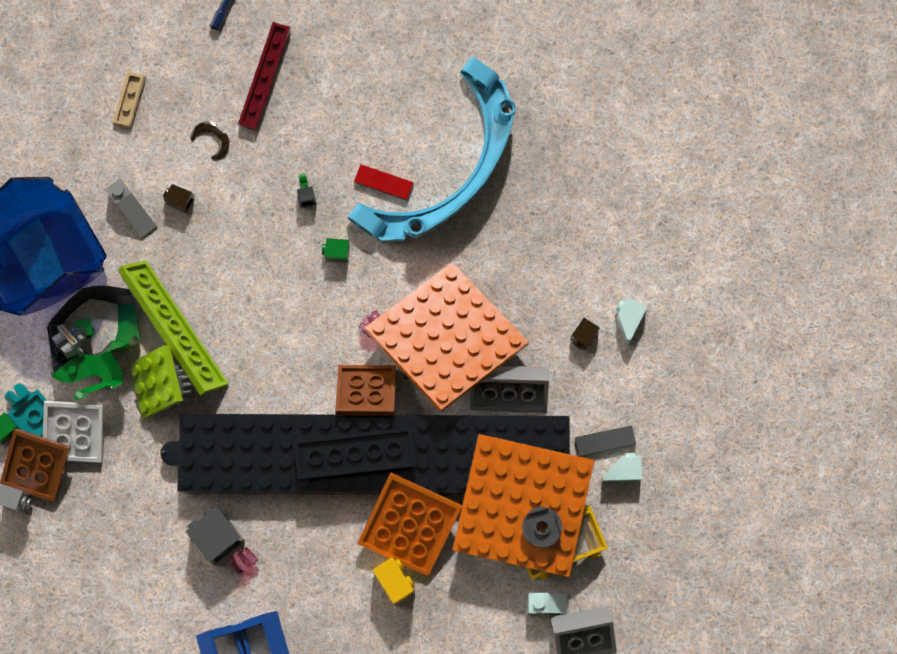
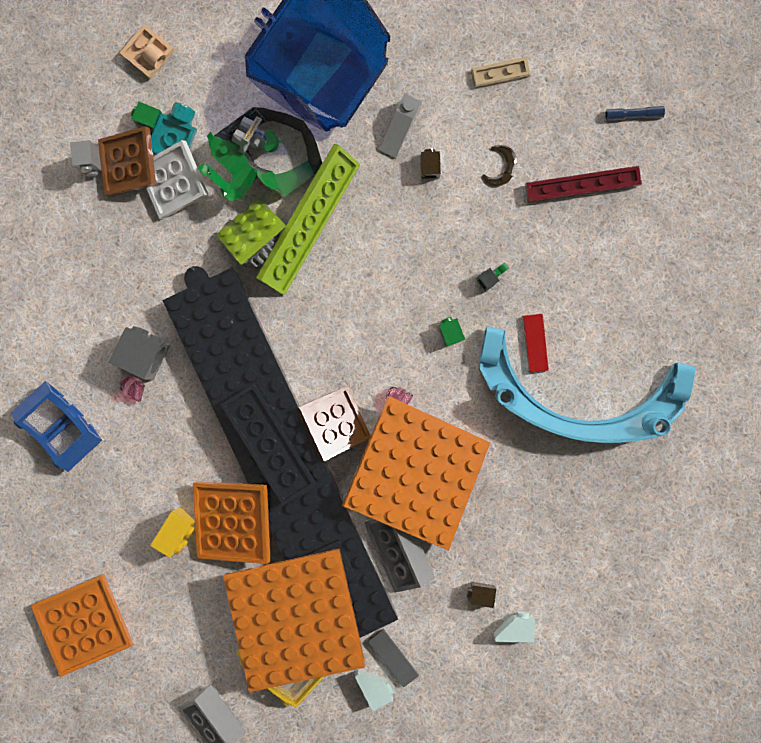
camera: 60 degrees right, 10 degrees up
(532, 521) = (278, 661): dark grey plate -> none
(547, 603) = (222, 674): light aqua slope -> none

